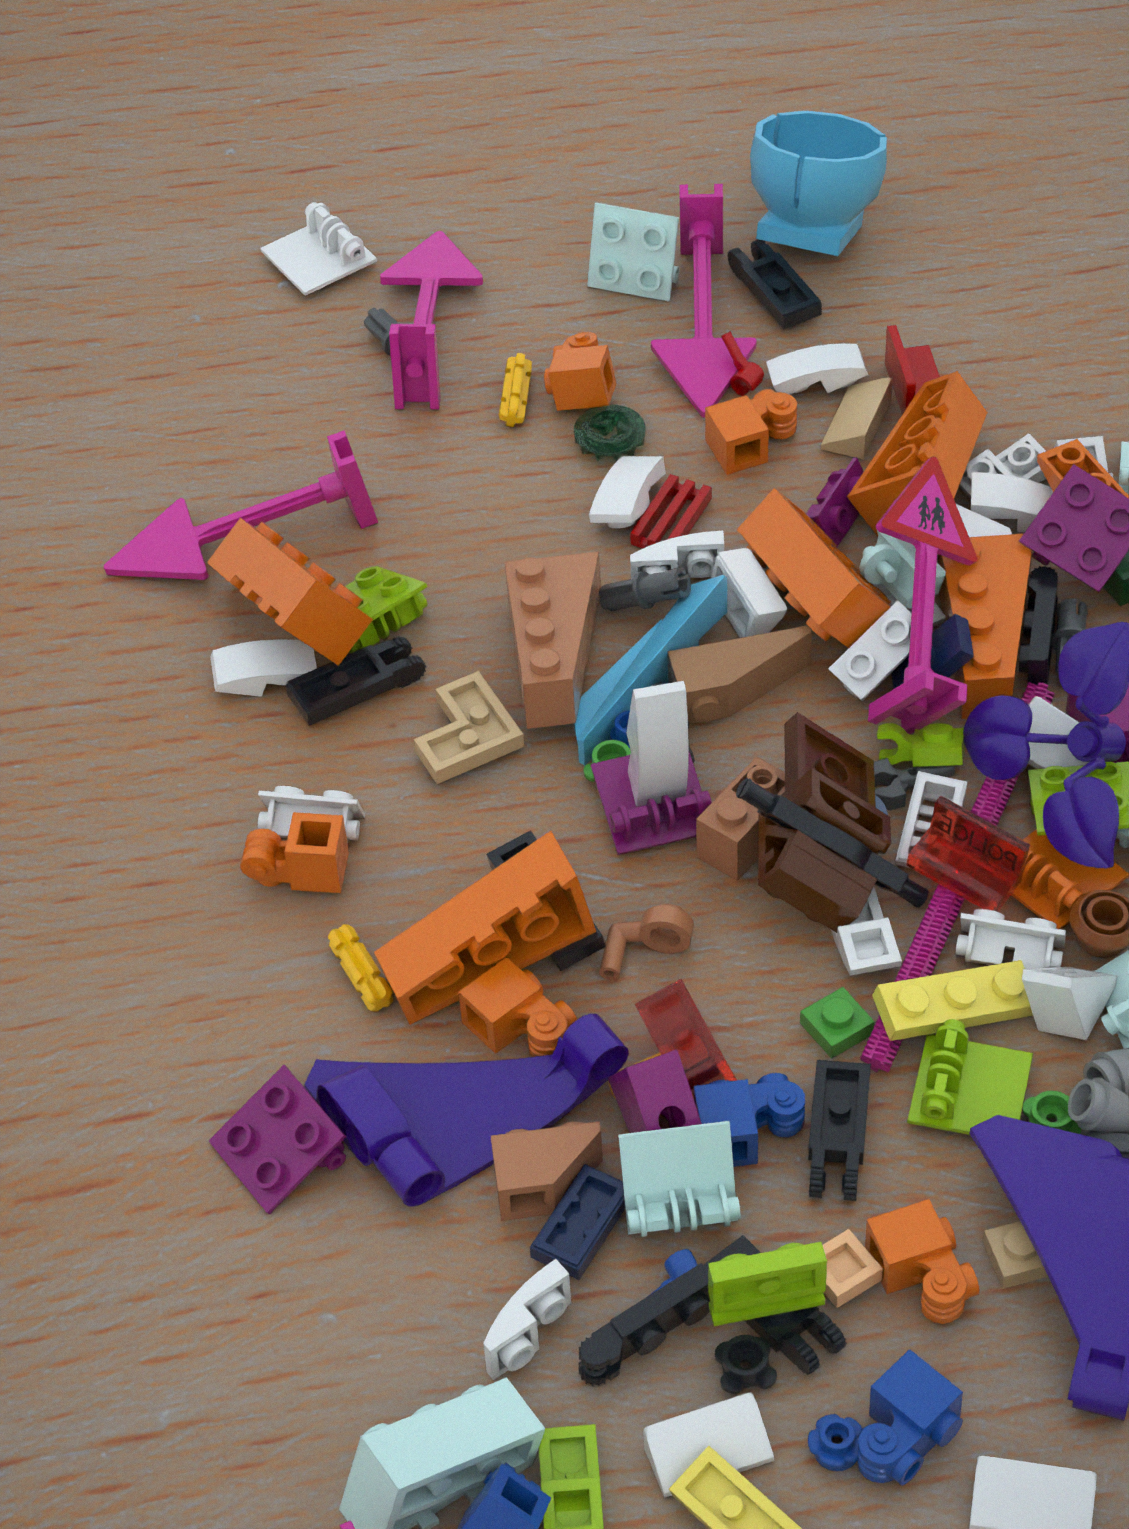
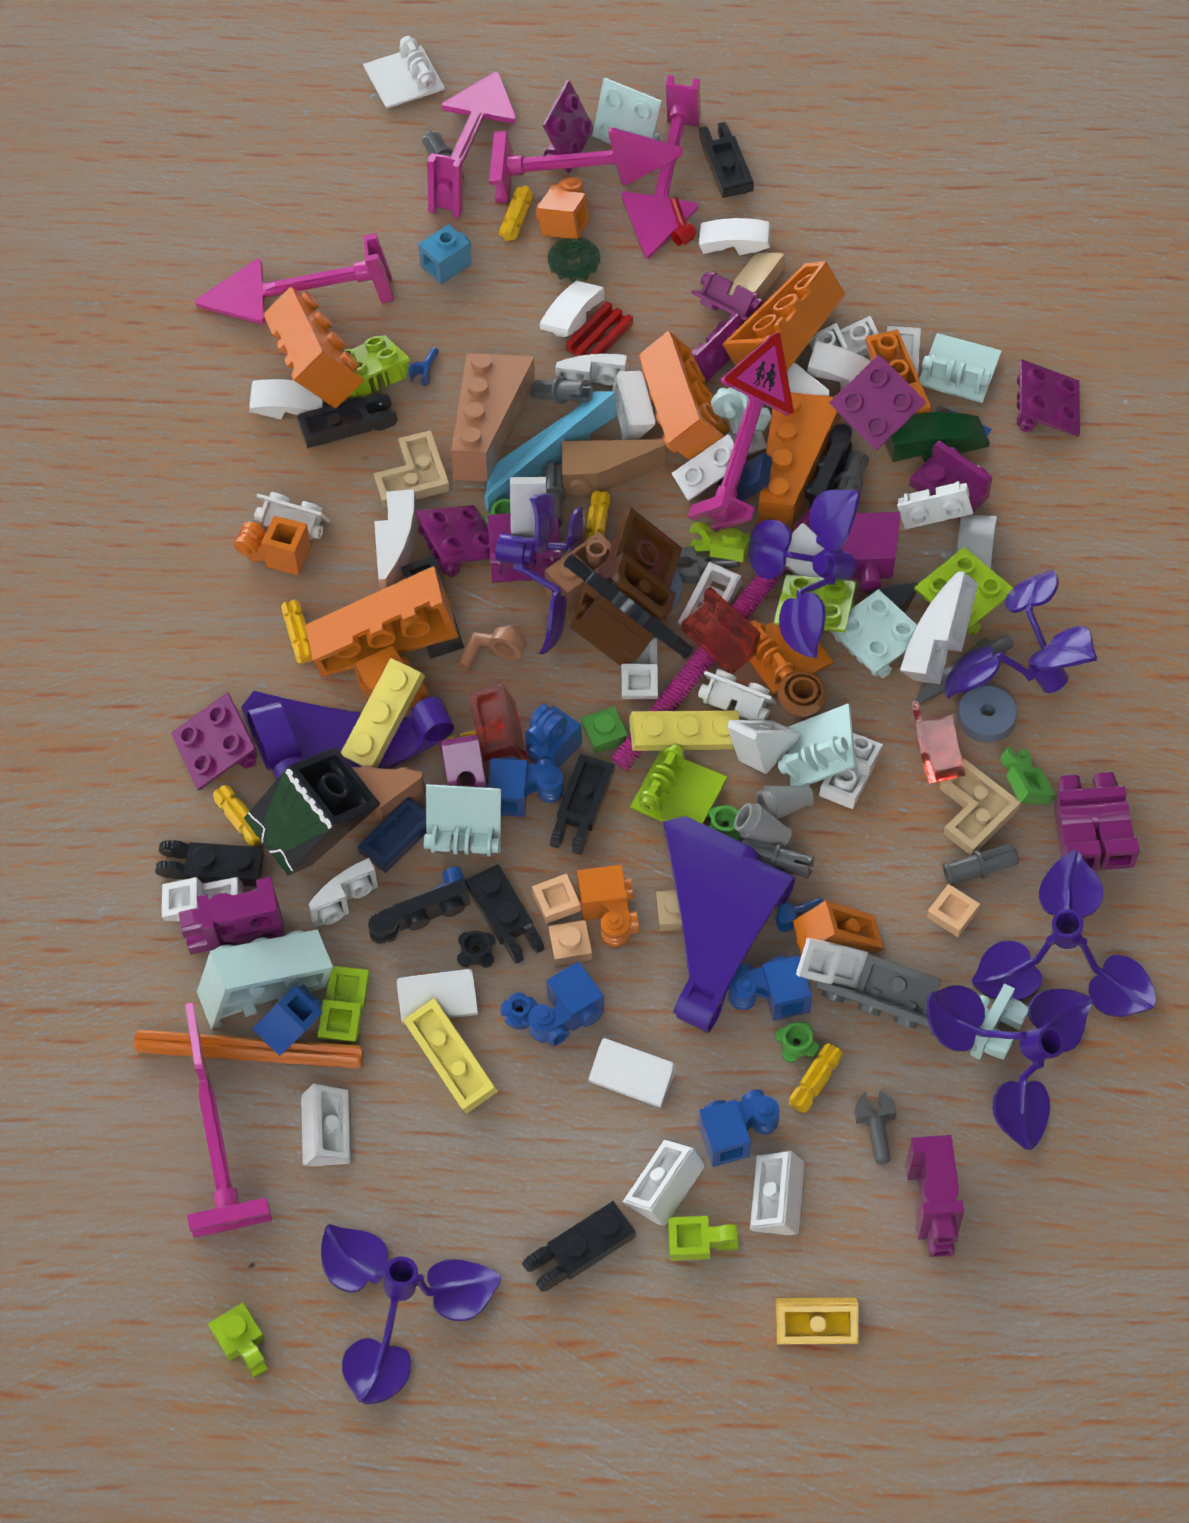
camera: 10 degrees right, 10 degrees up
(307, 1375) = (183, 894): none -> white slope
(314, 1314) = (211, 862): none -> black hinge
(341, 1238) = (235, 812): none -> yellow axle
(375, 1385) = (233, 918): none -> magenta hips
(434, 451) = (445, 253): none -> dark azure brick
(443, 596) = (423, 367): none -> blue hand
(452, 1206) = (310, 809): none -> black slope
(465, 815) = (395, 536): none -> white slope
(518, 1054) = (382, 714): none -> light yellow plate
(548, 799) = (454, 536): none -> magenta hinge
(558, 276) = (567, 124): none -> magenta hinge
(656, 289) = (631, 153): none -> dark pink piece
(659, 795) = (523, 550): none -> dark purple plant
(740, 740) = (597, 514): none -> yellow axle
(741, 428) = (665, 272): orange brick -> none
(767, 1283) = (497, 900): lime plate -> none
(770, 1039) = (552, 735): none -> blue brick
(815, 177) = (775, 84): medium azure plate -> none
(816, 438) = (716, 295): none -> magenta hinge
(880, 1329) = (570, 943): none -> light nougat plate
(907, 367) = (804, 246): red panel -> none

